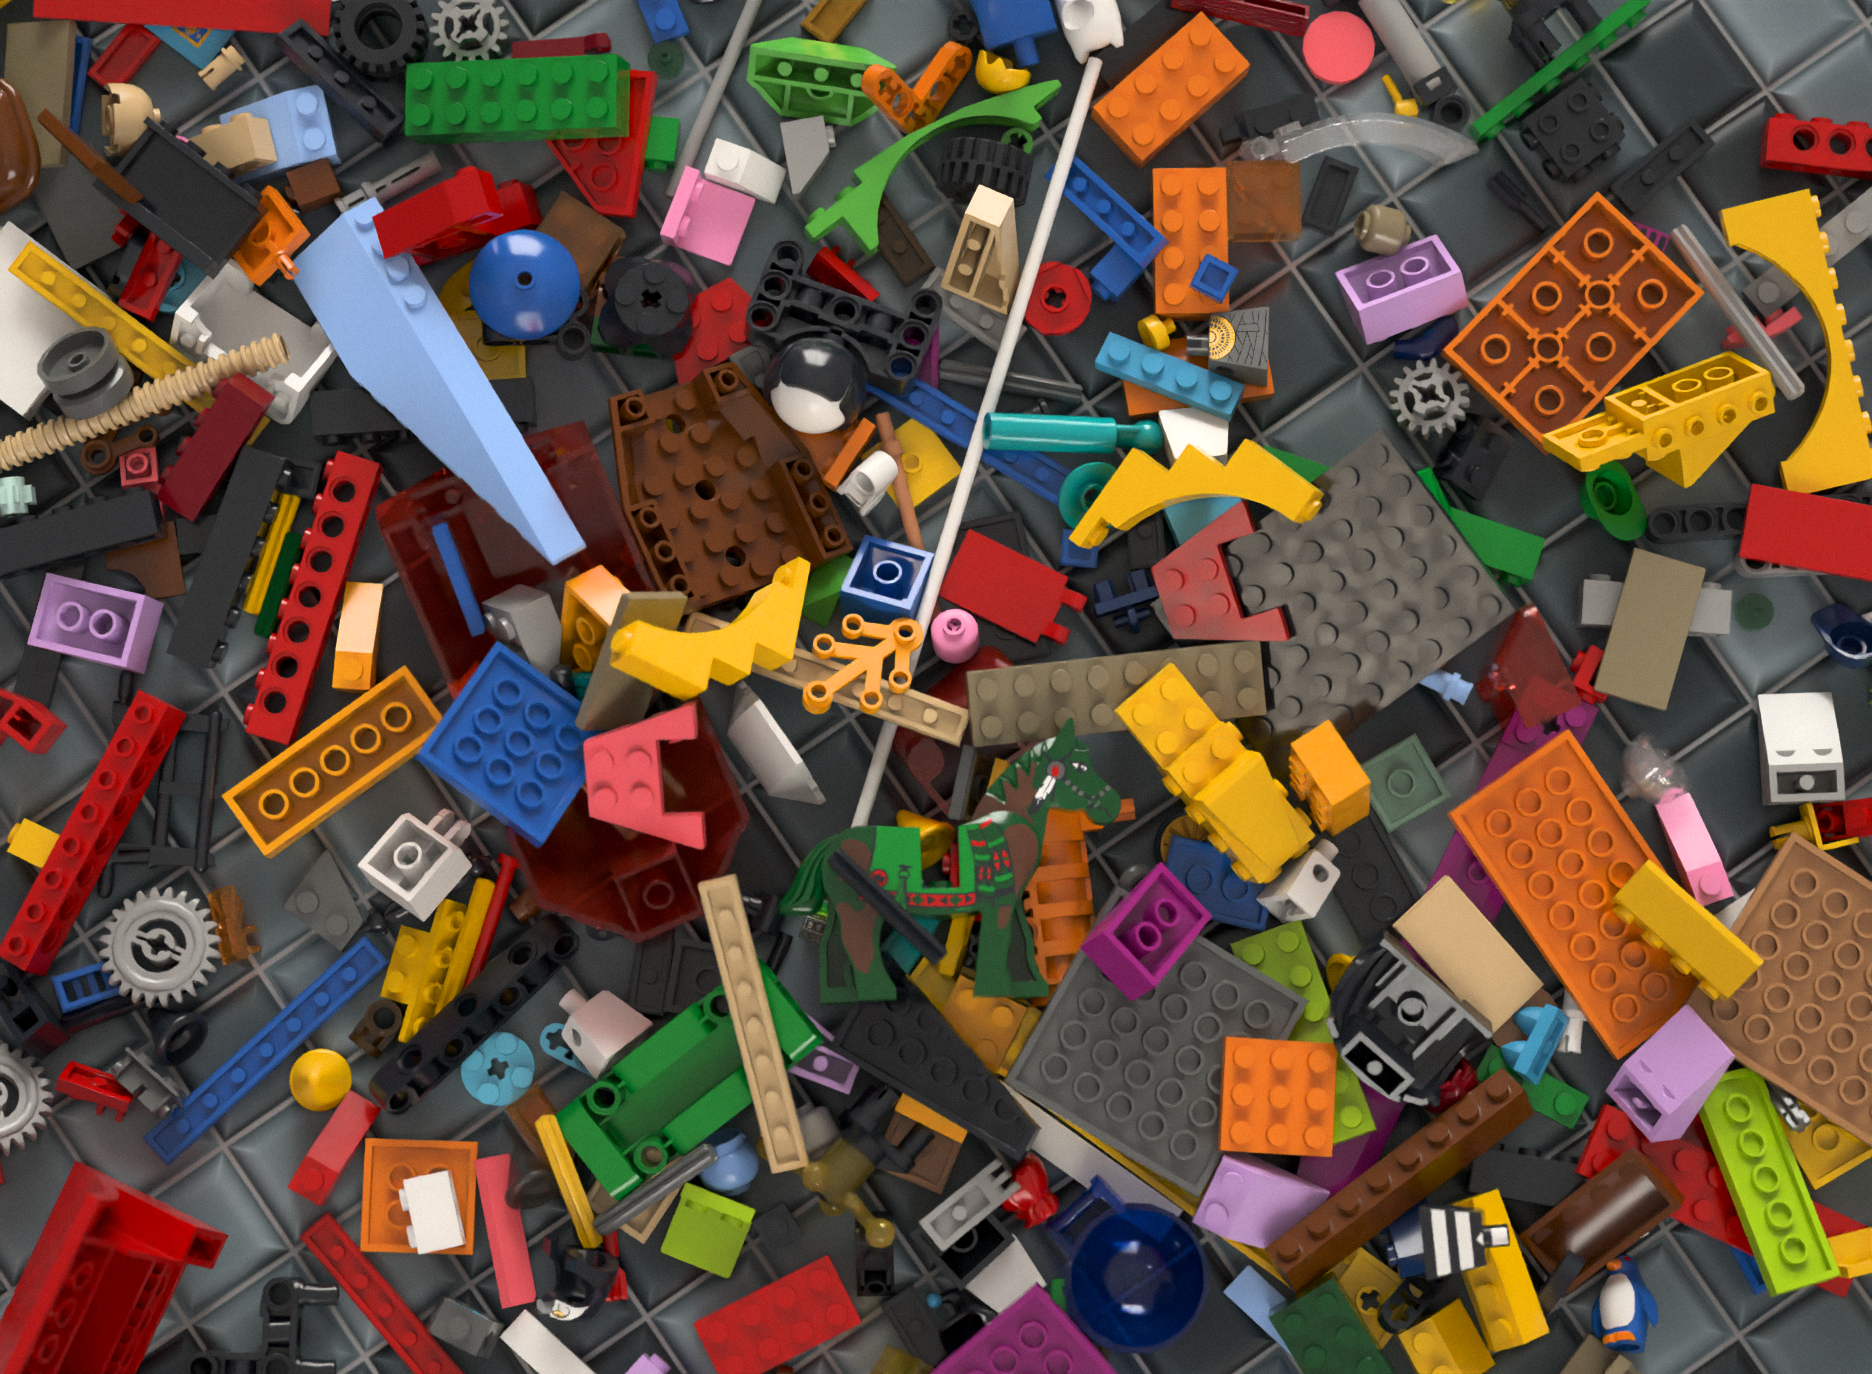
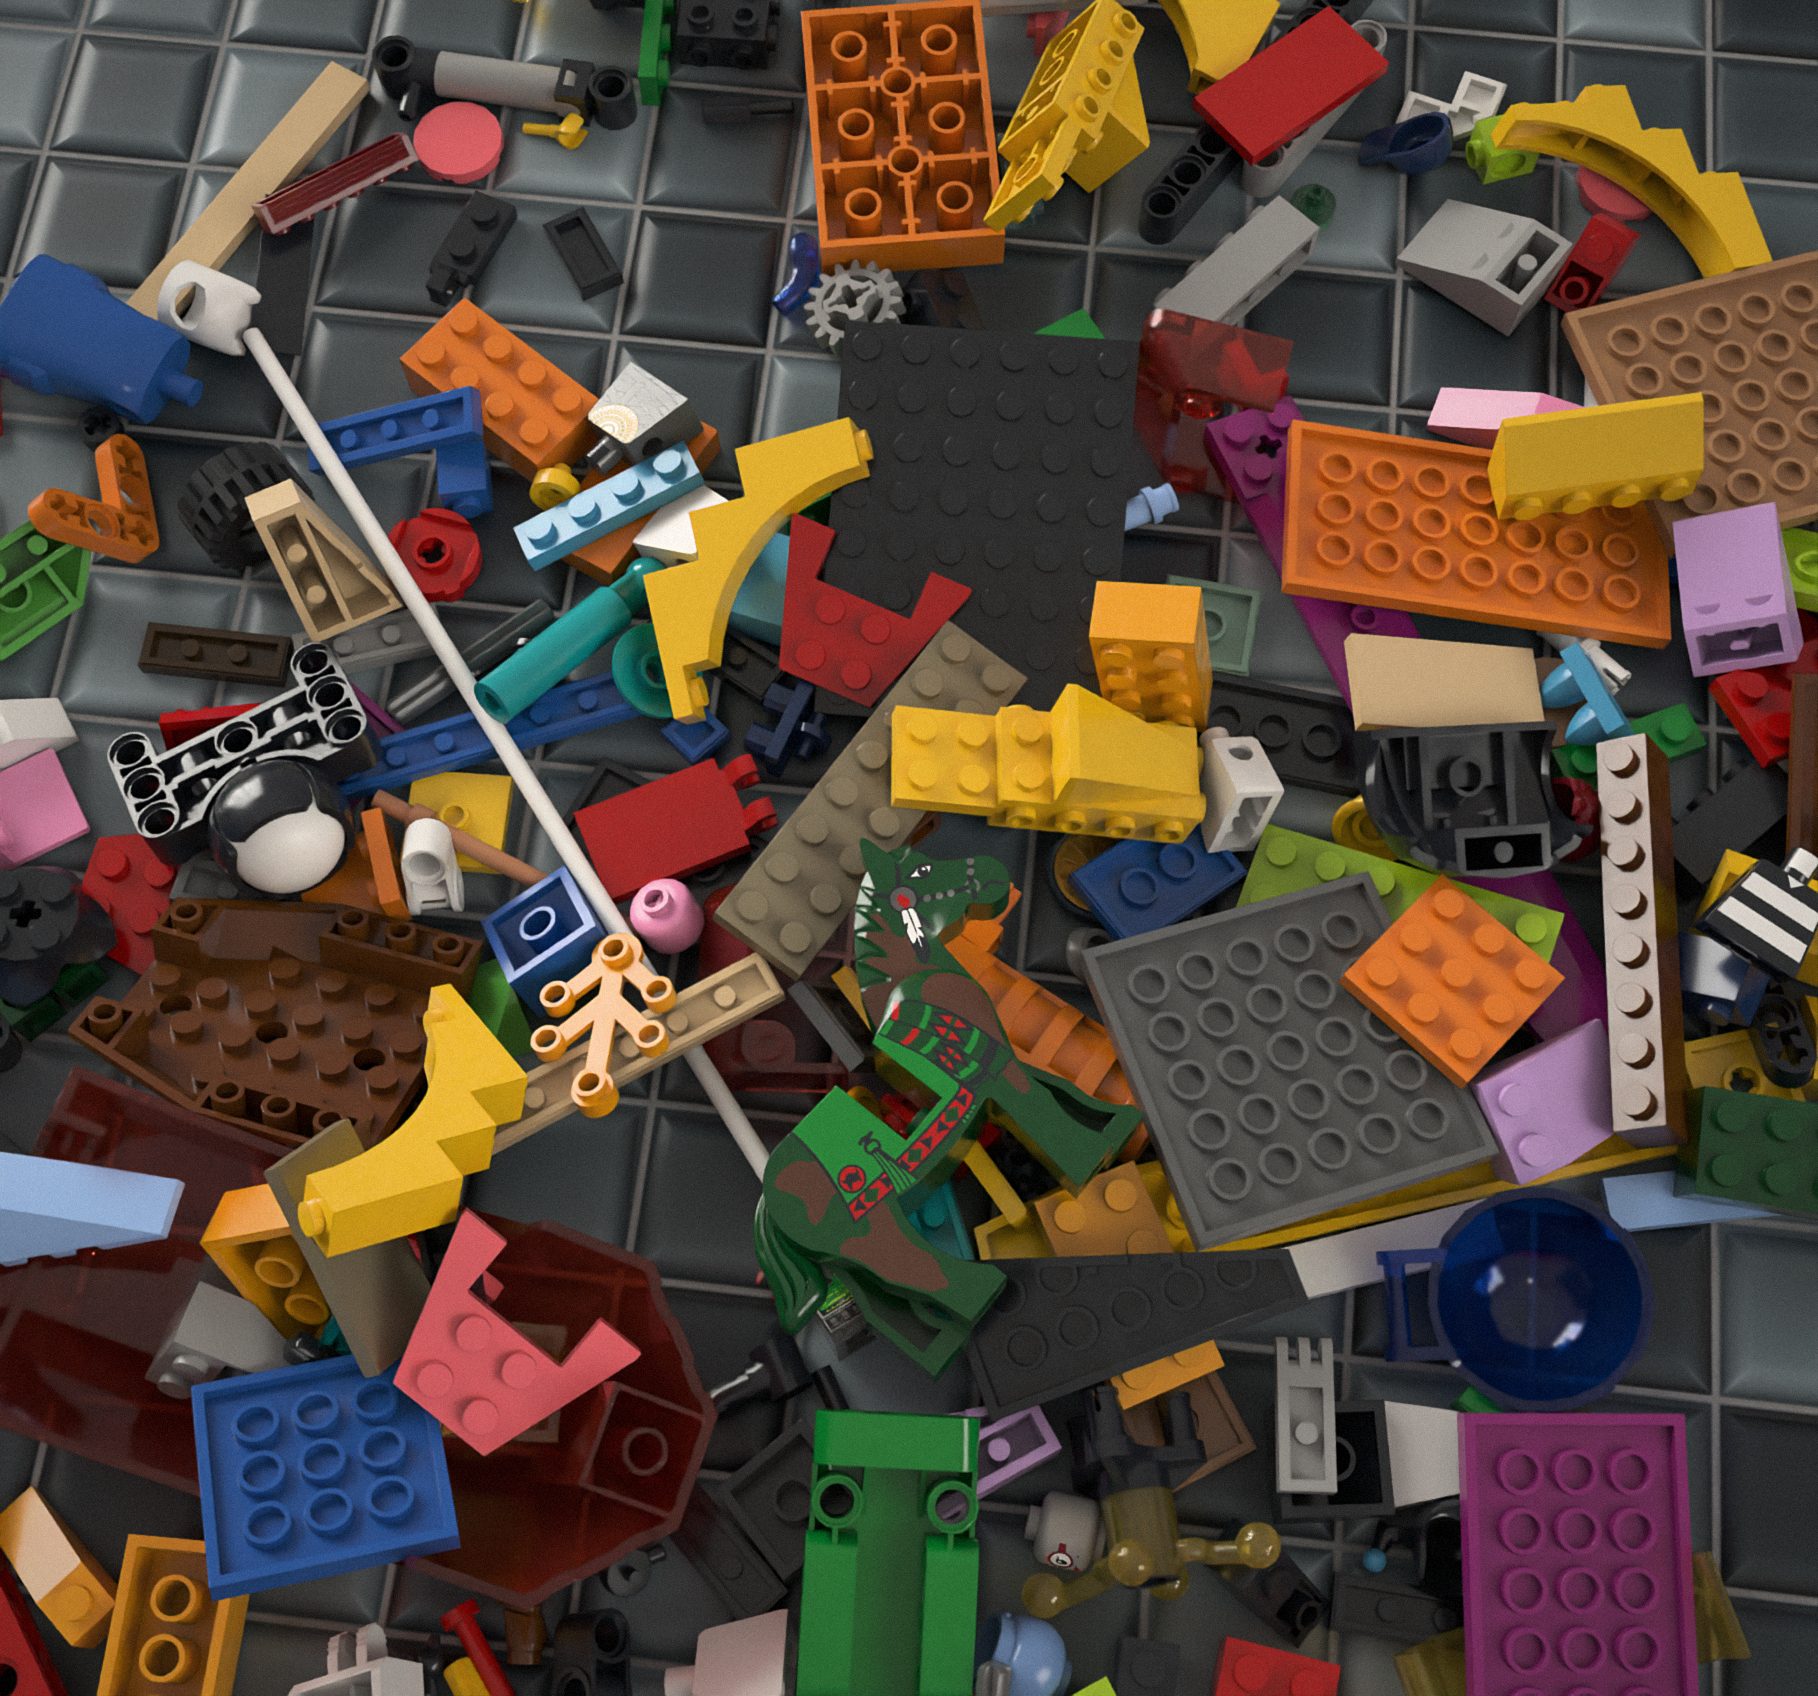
camera: 45 degrees left, 15 degrees down
(459, 578) = (88, 1374): blue tile -> none
(753, 1023) = (891, 1476): tan tile -> none
(769, 750) = (610, 1200): white wedge -> none
(806, 151) = (56, 660): light grey slope -> none
(859, 207) = (155, 649): bright green slope -> none
(887, 906) = (892, 1193): black axle -> none
(998, 74) = (175, 427): yellow hair -> none
(1034, 1199) = (1356, 1342): red hair -> none
(1146, 933) = (1162, 961): magenta slope -> none
(1170, 90) = (347, 299): orange brick -> none
(1213, 278) = (555, 382): blue tile -> none
(1263, 201) = (533, 296): clear orange brick -> none
(1382, 230) = (658, 228): dark tan head -> none
(1396, 131) = (560, 148): clear windscreen -> none
(1402, 289) = (731, 254): lavender slope -> none
(1612, 499) = (1096, 235): green piece -> none
(1649, 629) = (1254, 277): dark tan tile -> none
(1651, 771) = (1395, 393): clear cylinder -> none
(1807, 829) = (1557, 301): yellow bracket -> none

